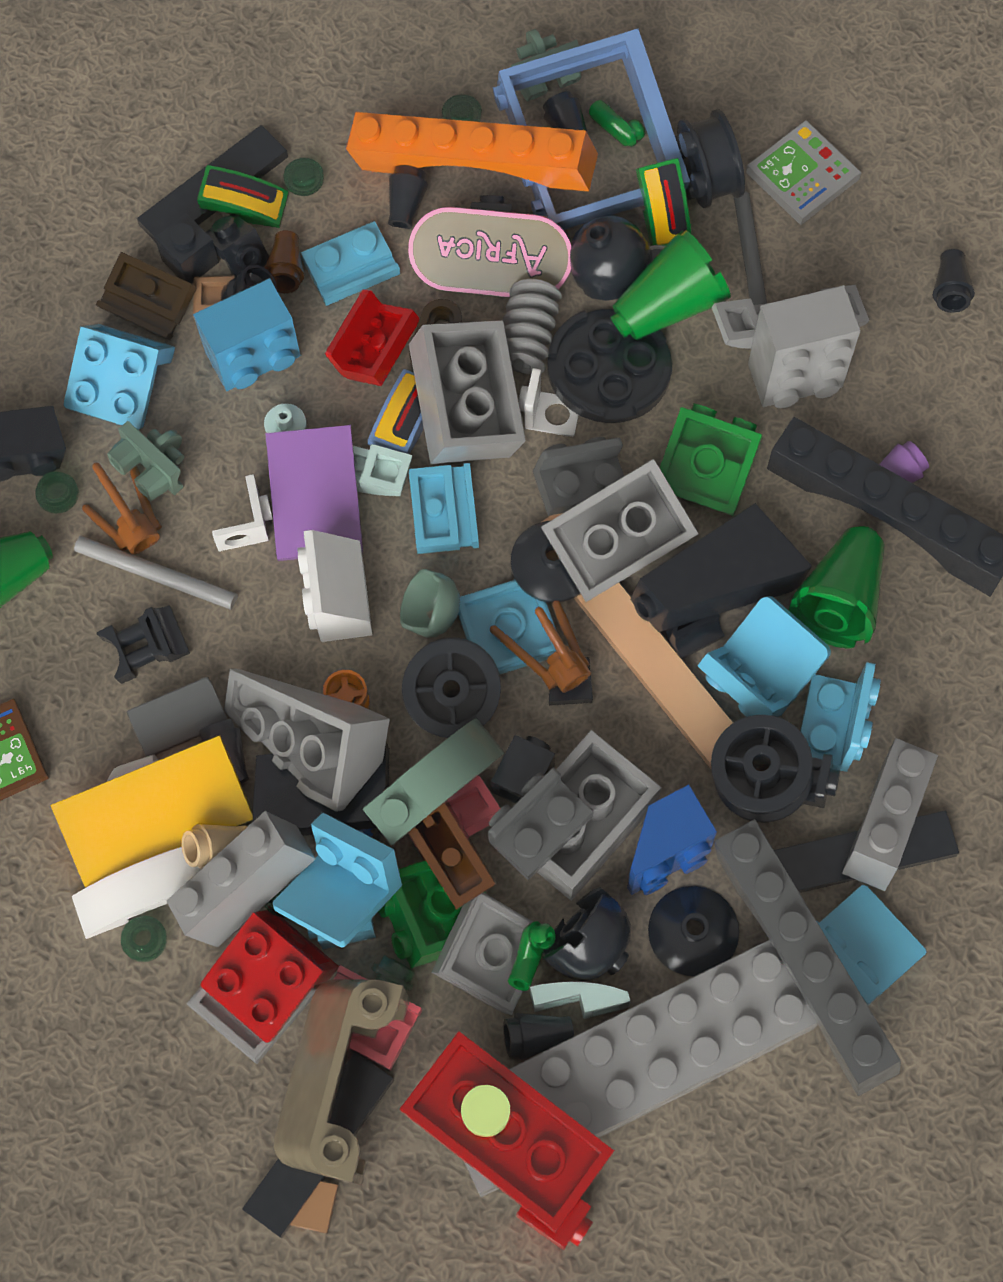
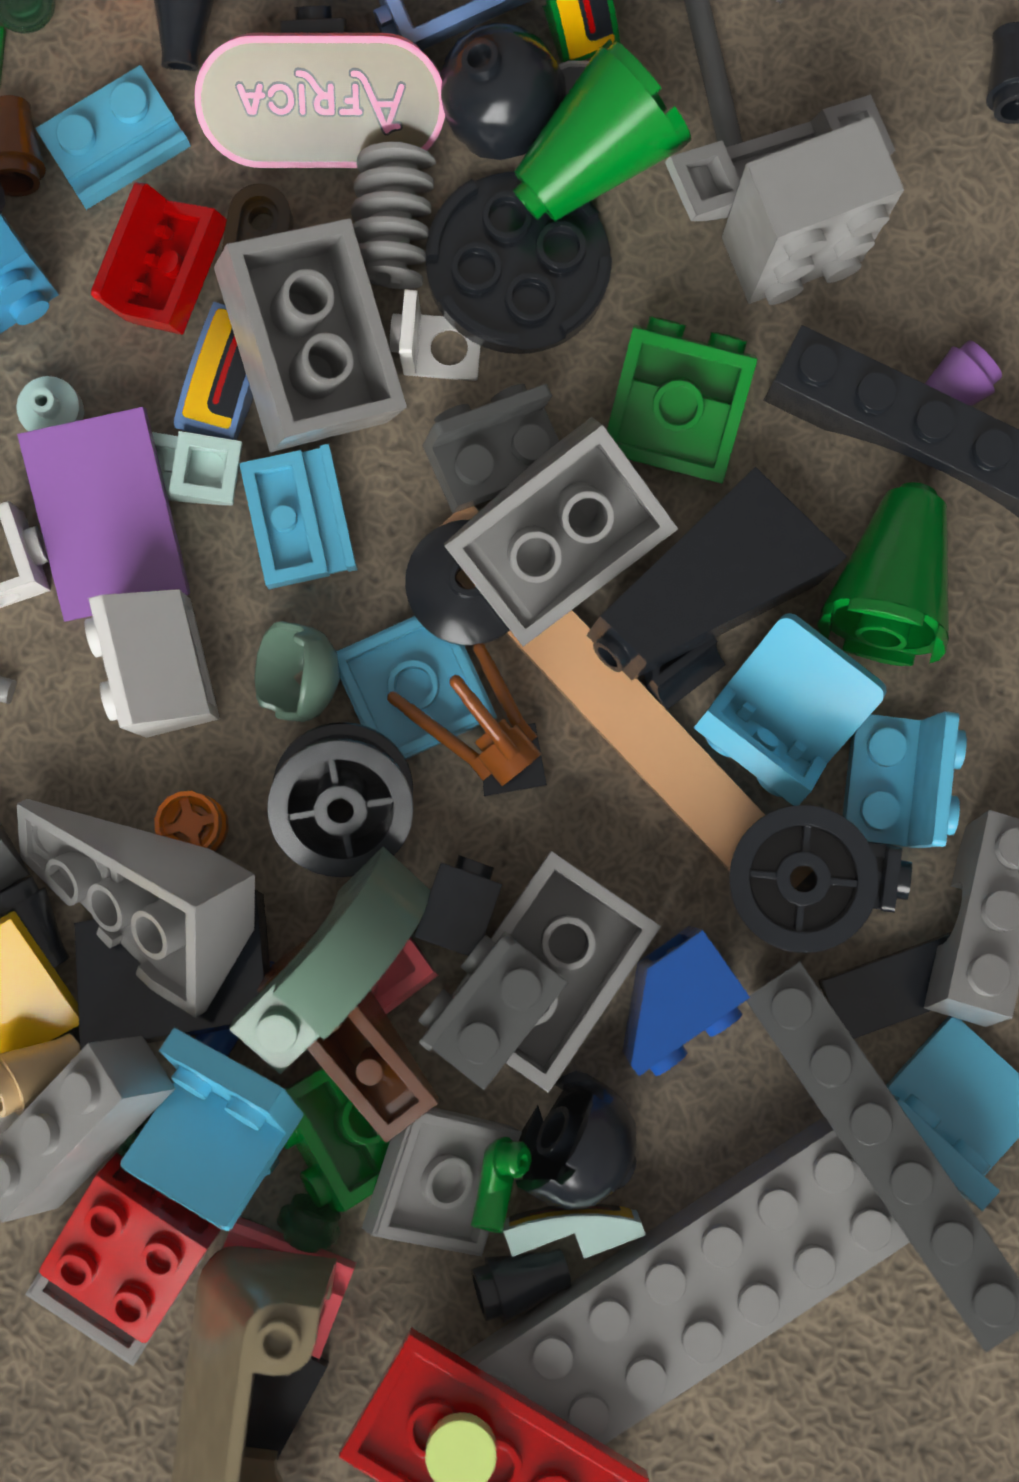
camera: 10 degrees left, 15 degrees up
(693, 953) = (697, 1080): black dish -> none

